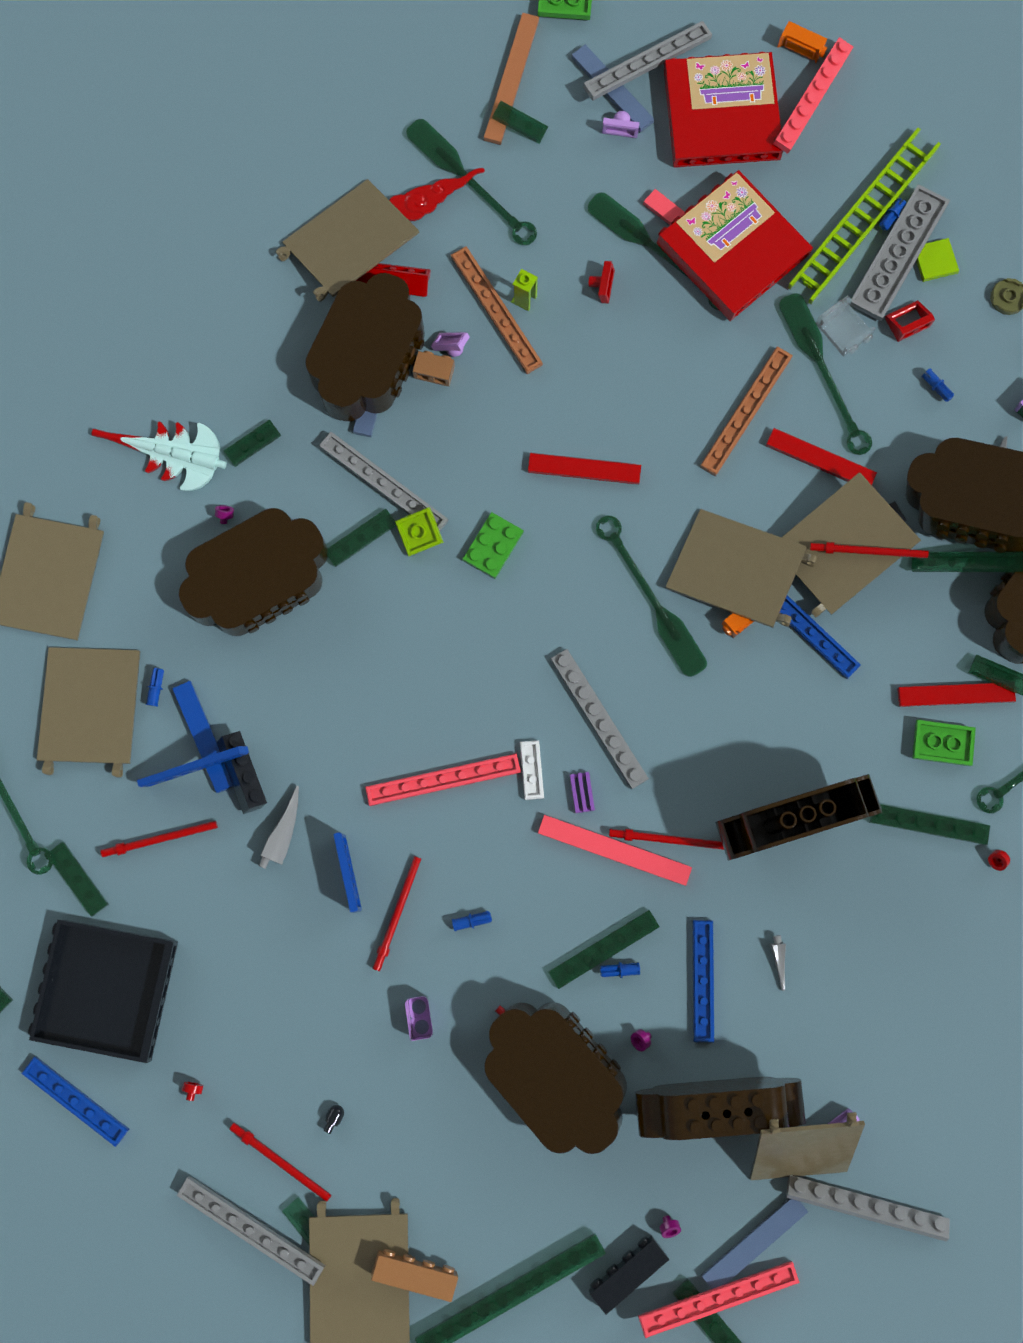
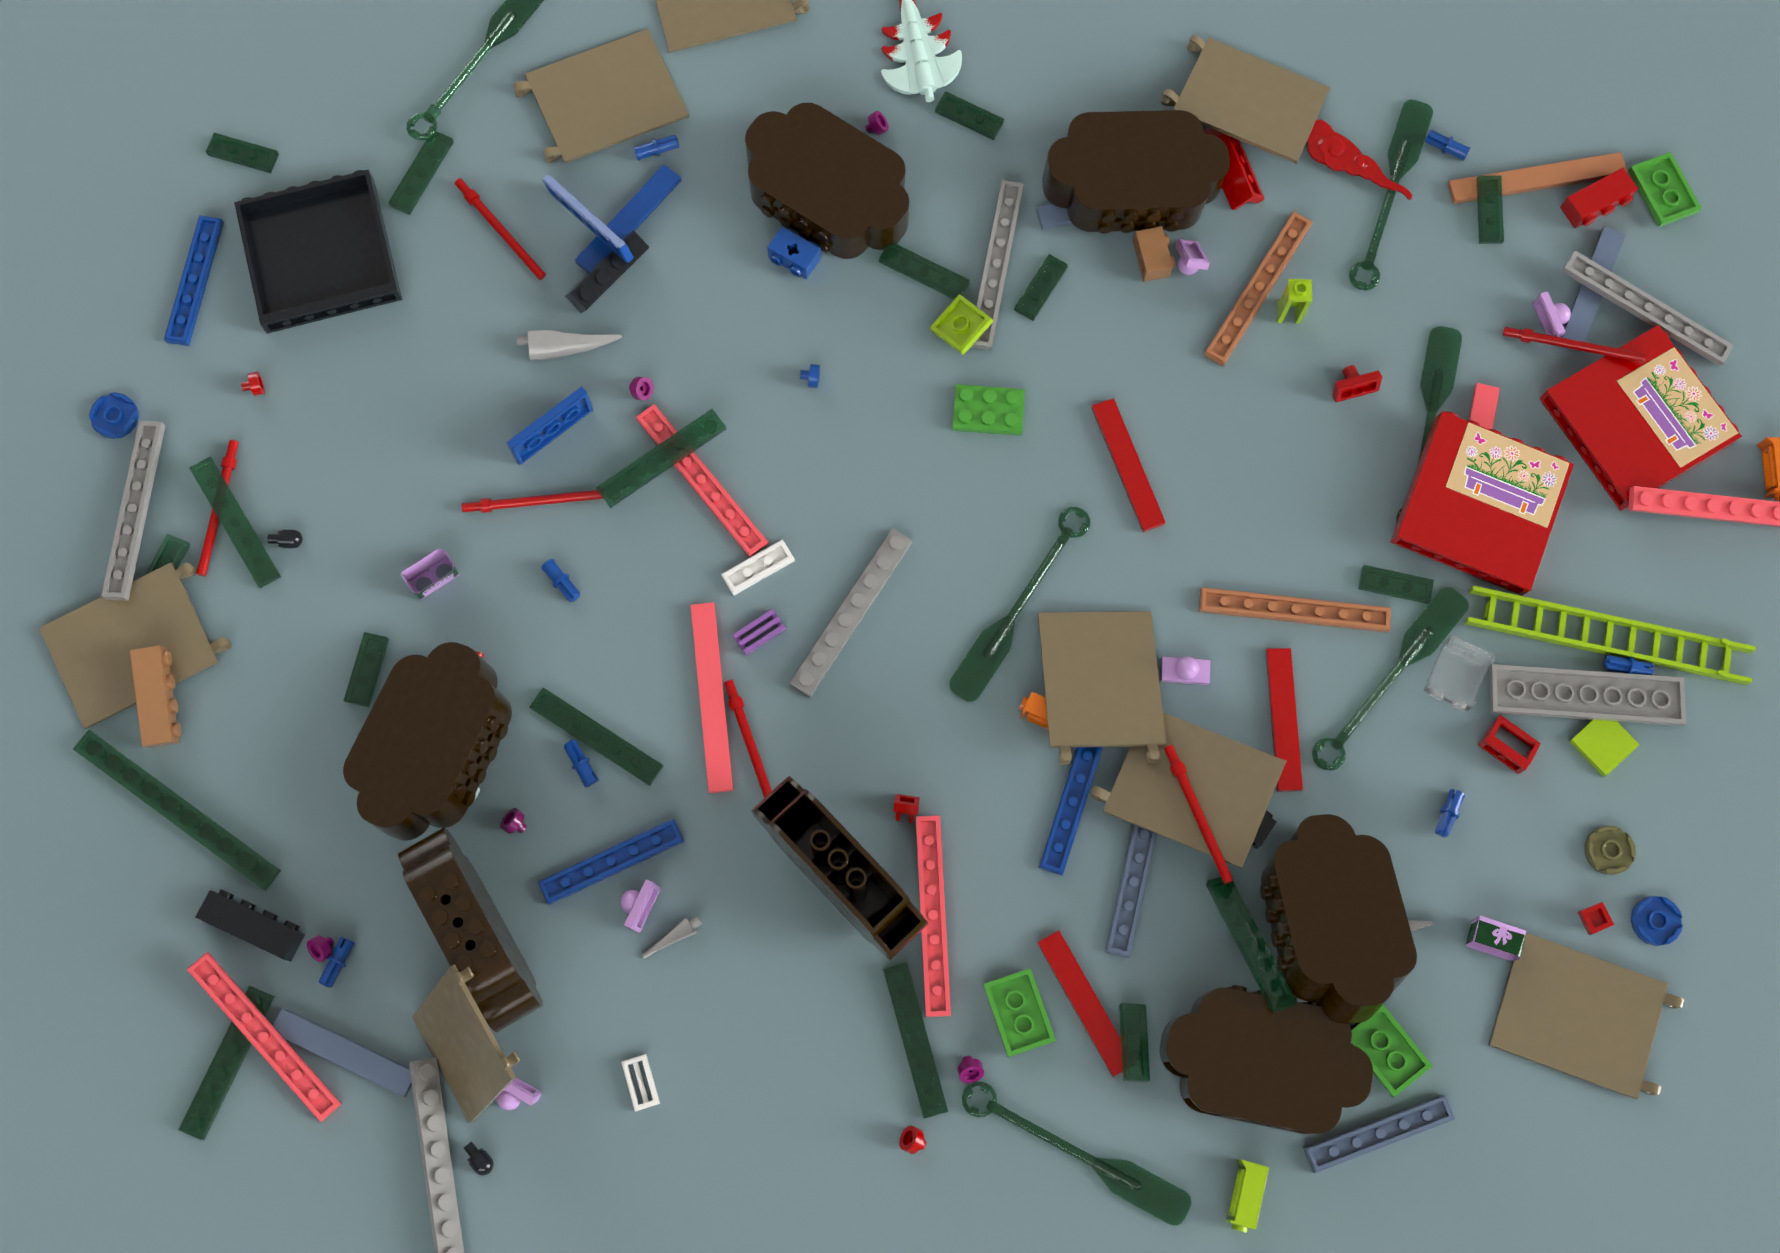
camera: 60 degrees right, 5 degrees down
(159, 1214) = (114, 415): none -> blue tile
(288, 628) = (794, 253): none -> blue brick
(300, 1153) = (235, 522): none -> clear green tile
(348, 790) = (641, 388): none -> magenta tile
(403, 658) = (812, 375): none -> blue tile
(414, 801) = (661, 458): none -> clear green plate
(417, 460) = (1041, 287): none -> clear green tile
(455, 123) = (1447, 144): none -> blue axle
(469, 1100) = (366, 669): none -> clear green tile
(550, 46) = (1599, 198): none -> red brick
(626, 149) = (1527, 335): none -> red bar
(686, 1220) = (336, 962): none -> blue axle
(746, 975) = (639, 904): none -> lavender tile
(755, 507) = (1185, 670): none -> lavender tile
(761, 334) = (1396, 584): none -> clear green tile
(762, 749) = (907, 805): none -> red tile
(848, 768) = (933, 910): none -> coral plate
(856, 1030) = (646, 1103): none -> white tile
(877, 1175) = (479, 1159): none -> black cylinder
(894, 625) = (1131, 892): none -> sand blue tile
(968, 796) = (970, 1070): none -> magenta tile

